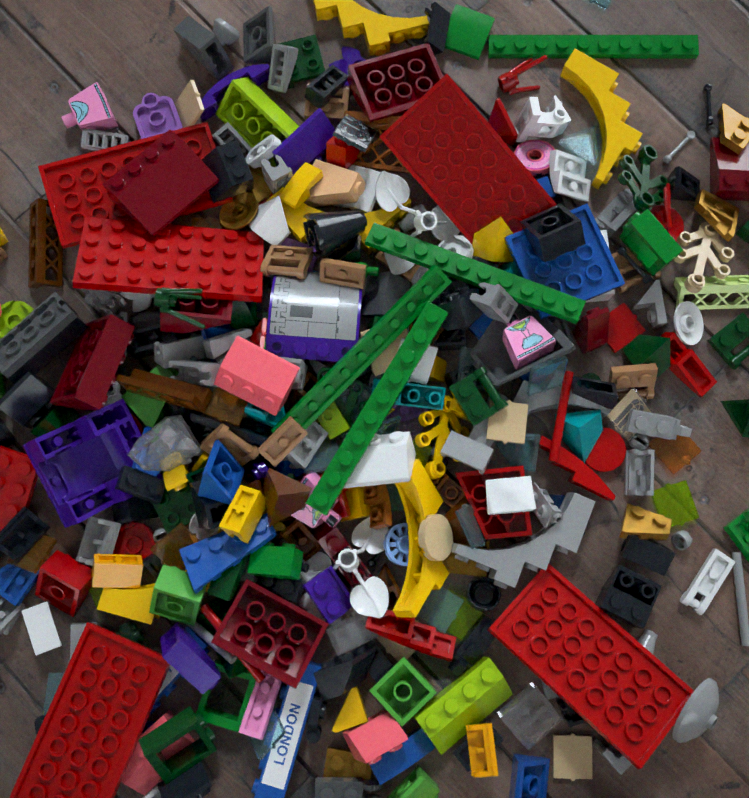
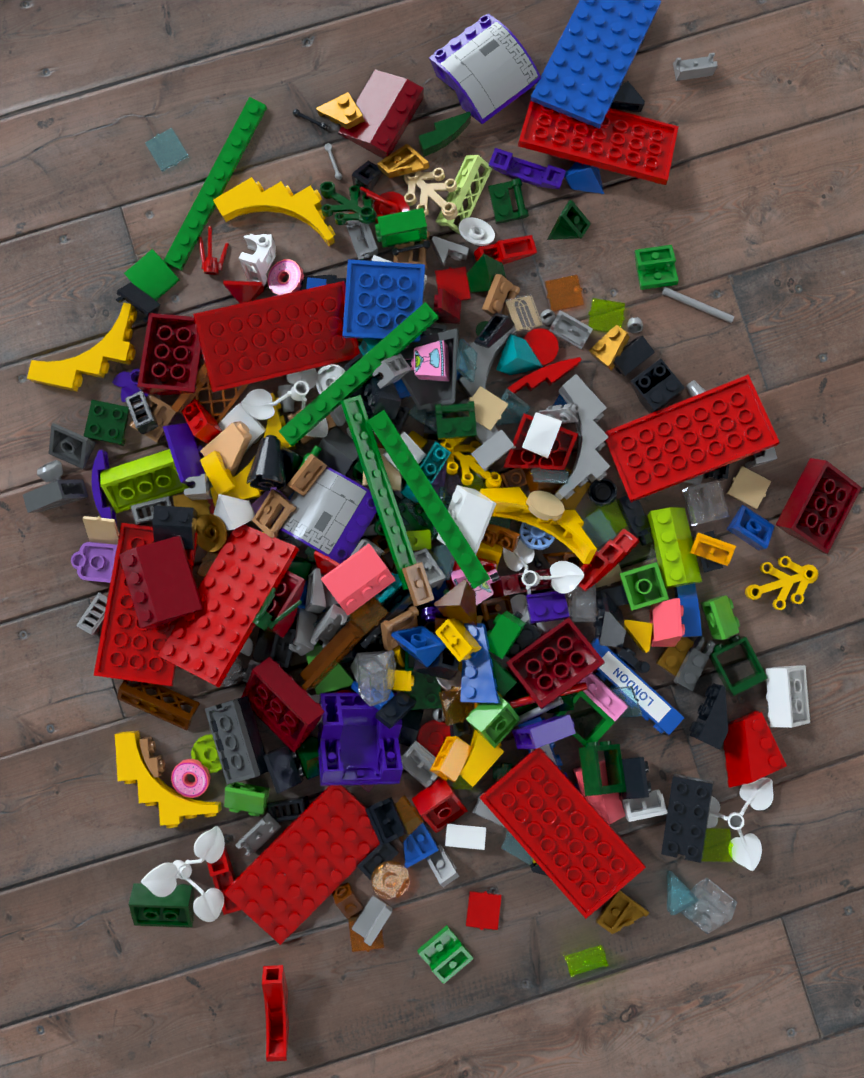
camera: 70 degrees left, 5 degrees up
(90, 110) = (62, 613): bright pink torso -> none
(262, 150) = (172, 489): white plate -> none
(288, 56) = (105, 430): light grey slope -> none
(355, 133) = (197, 408): piece -> none
(490, 242) = (339, 348): yellow slope -> none
(553, 232) = (359, 297): black slope -> none
(560, 417) = (501, 366): red bar -> none
(568, 175) = (314, 260): white slope -> none
(583, 144) = (293, 234): clear light blue slope -> none
(655, 425) = (541, 298): light grey hinge -> none
(698, 712) = (761, 380): light grey dish -> none
(707, 581) = (673, 322): white plate -> none

